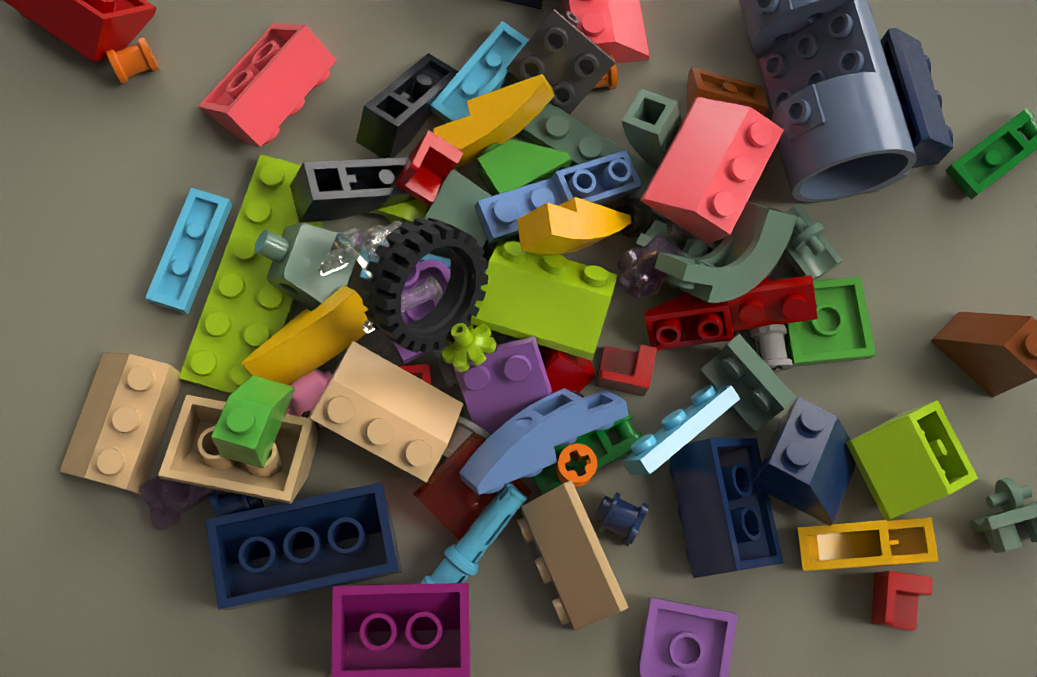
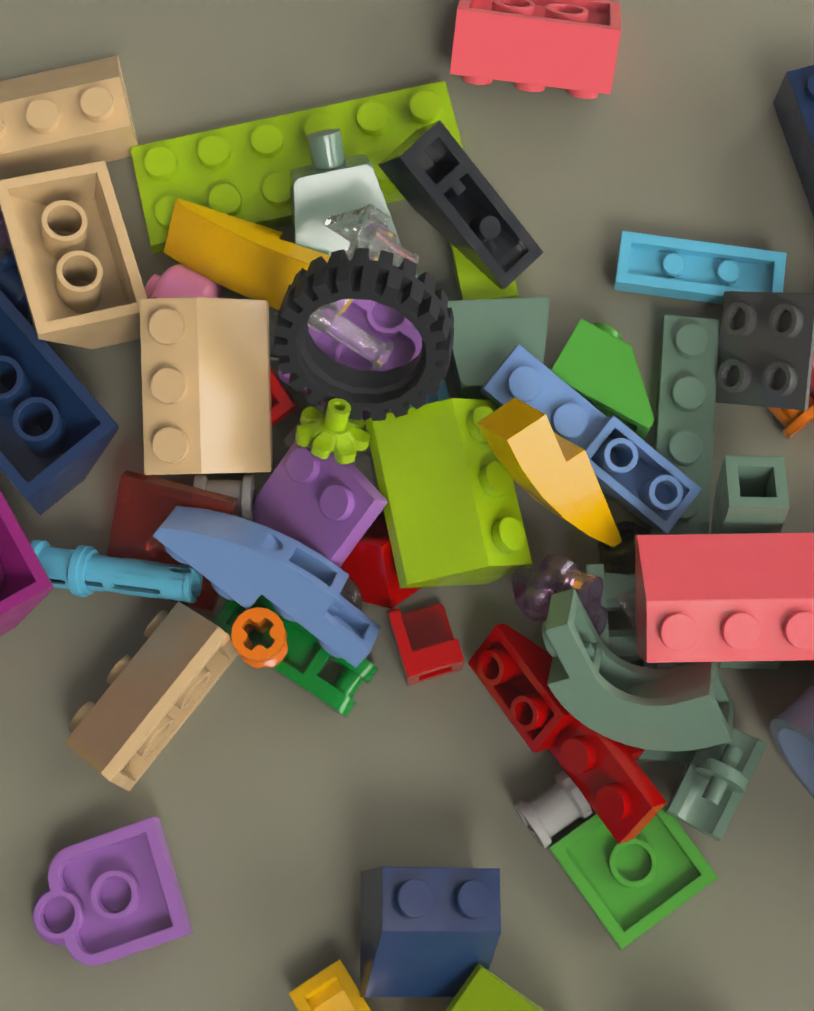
camera: 65 degrees right, 0 degrees up
(189, 251) = (283, 73): medium azure plate -> none
(252, 420) = (109, 241): bright green slope -> none
(403, 107) = (599, 202): black slope -> none
(428, 167) = (529, 268): red panel -> none
(496, 117) = (642, 310): yellow slope -> none
(621, 517) = (234, 730): dark blue brick -> none
(679, 429) = (380, 743): medium azure plate -> none
(722, 513) = (304, 853): dark blue slope -> none
(758, 387) = (484, 800): sand green bracket -> none

